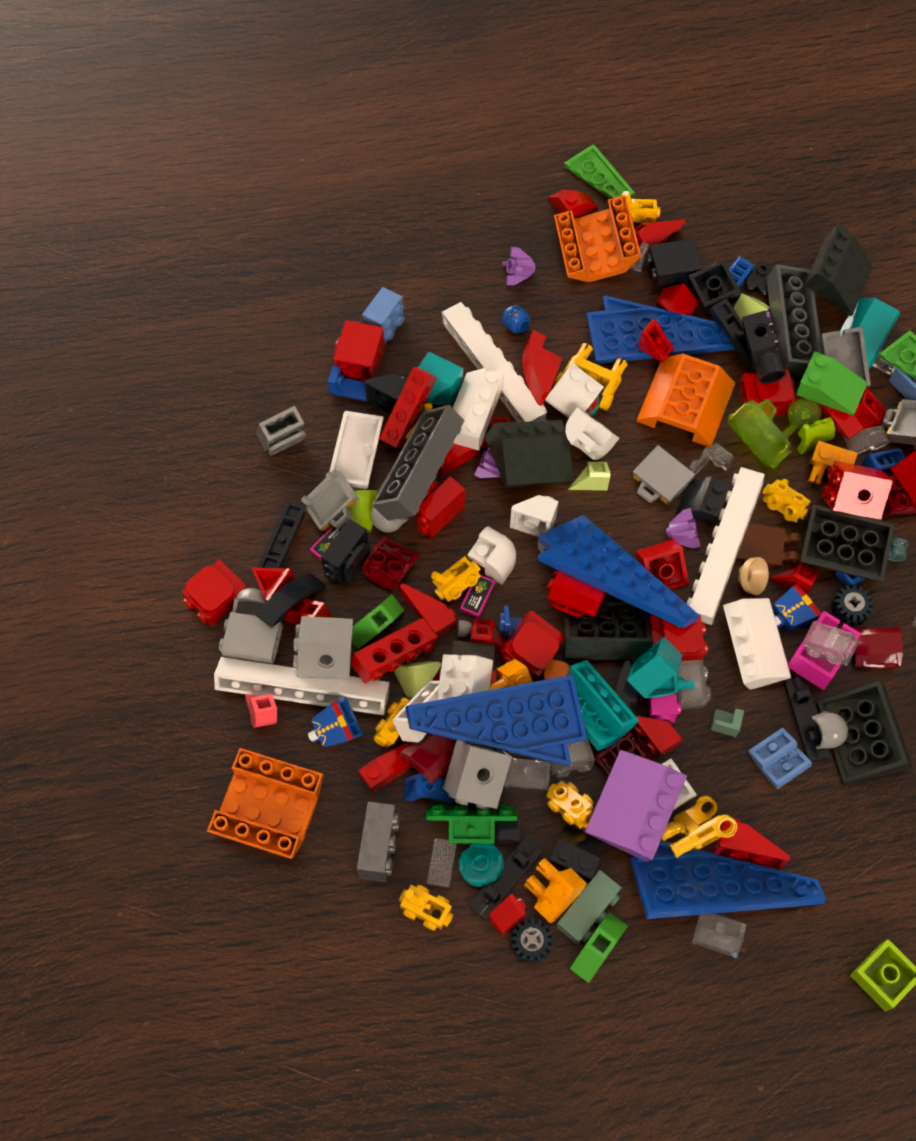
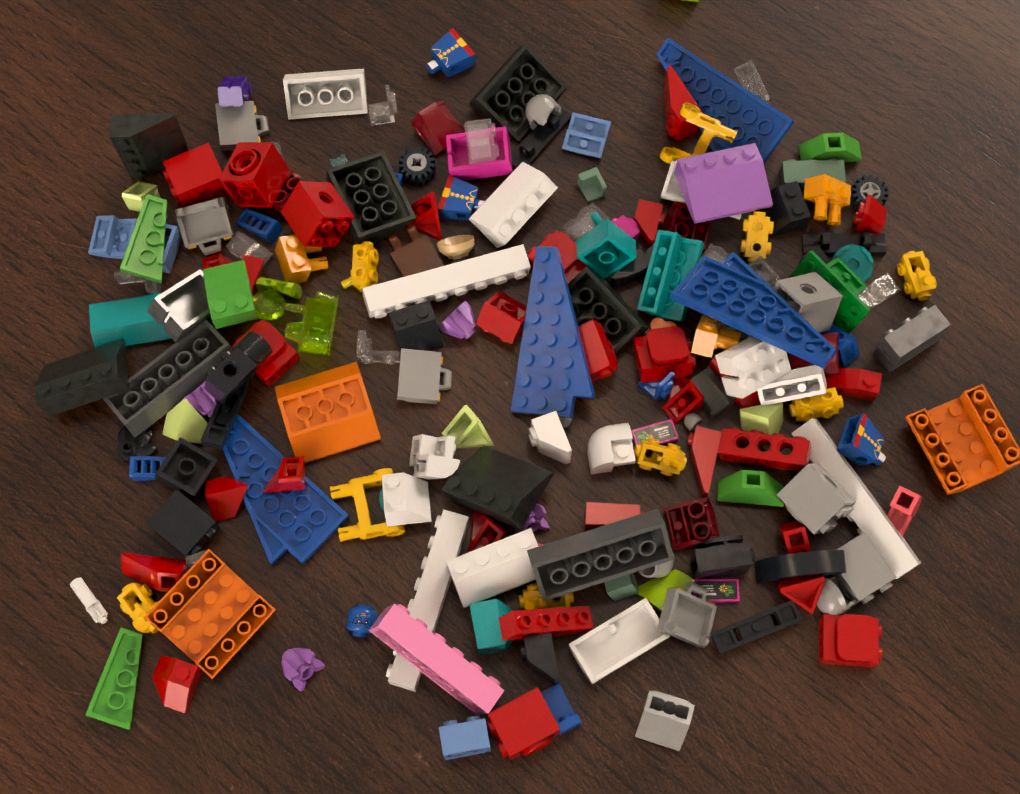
camera: 130 degrees left, 5 degrees up
(445, 325) = (436, 659): none -> bright pink brick
(539, 367) = (401, 551): red slope -> none
(669, 191) = (90, 602): none -> white piece

